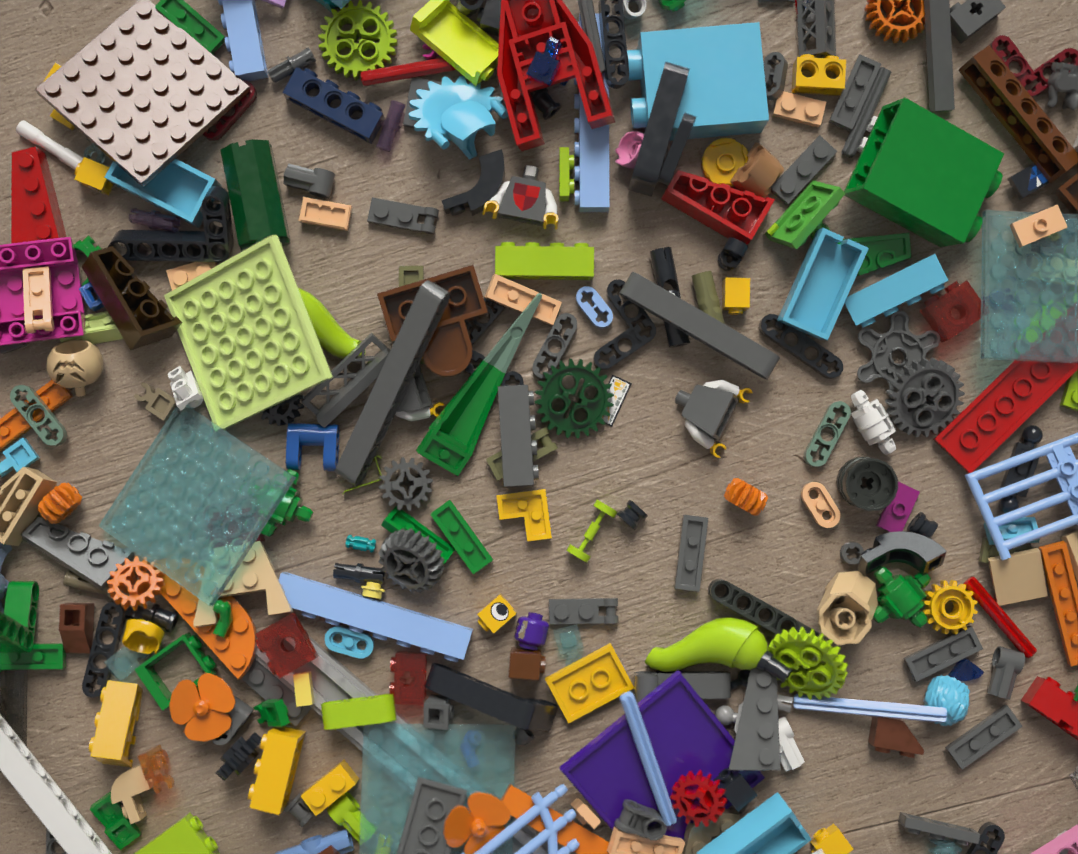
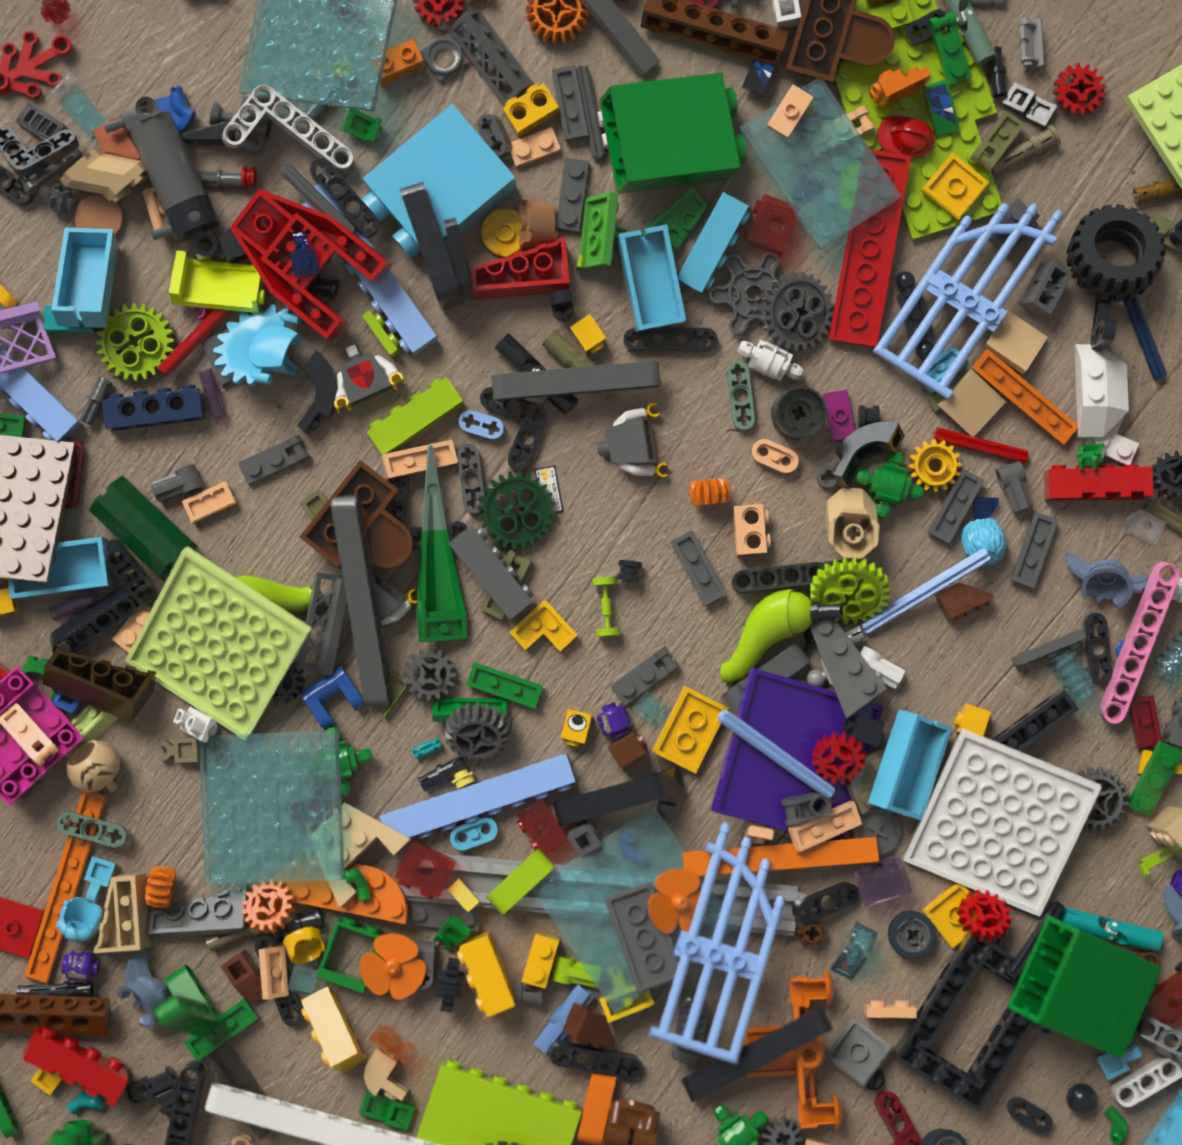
camera: 30 degrees left, 0 degrees up
(101, 640) = (273, 972): none -> light nougat plate
(629, 149) = (419, 277): bright pink hair -> none
(751, 548) = (743, 530): none -> light nougat brick
(1029, 806) = (1106, 579): none -> sand blue helmet

